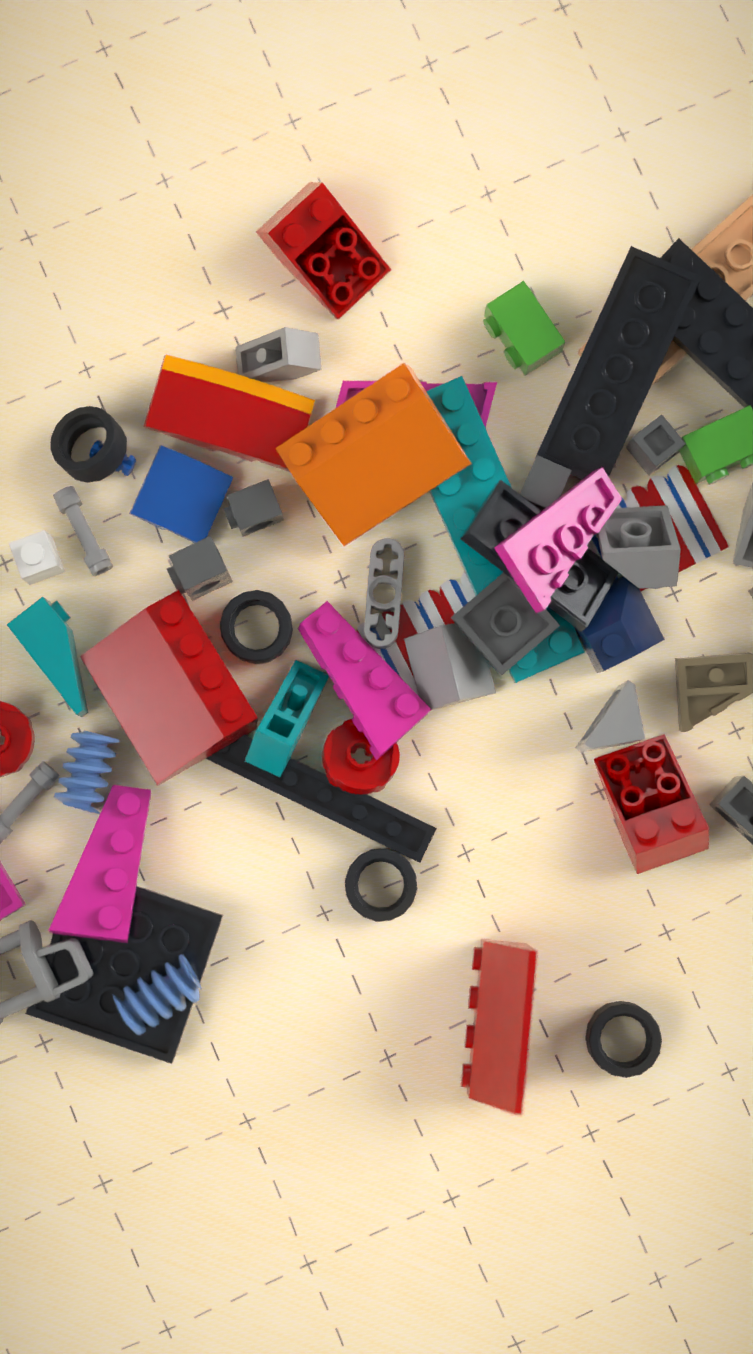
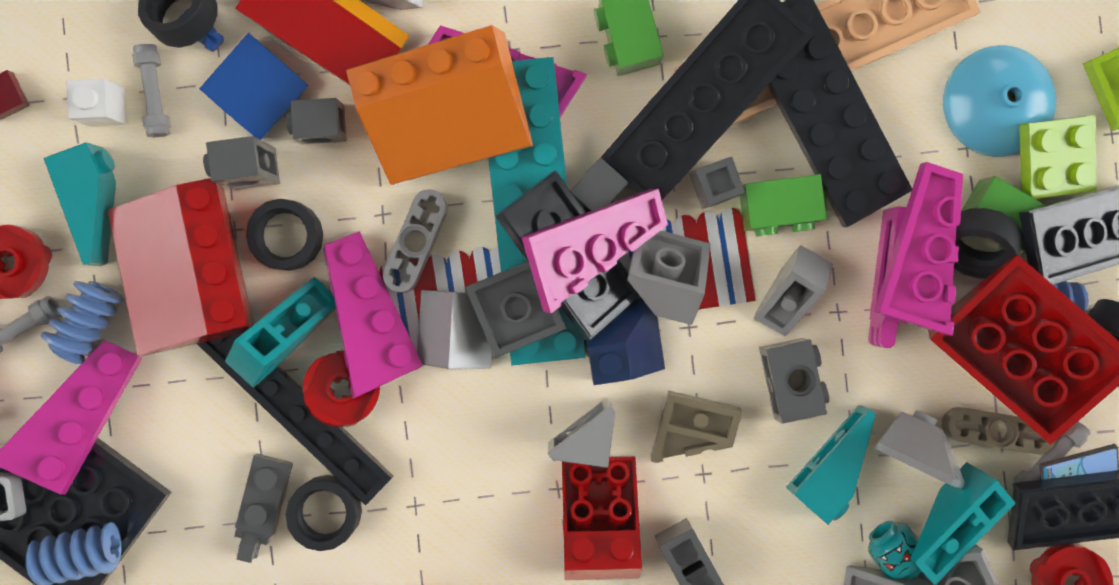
camera: 25 degrees right, 5 degrees up
(315, 897) = (261, 504): none -> dark grey hinge

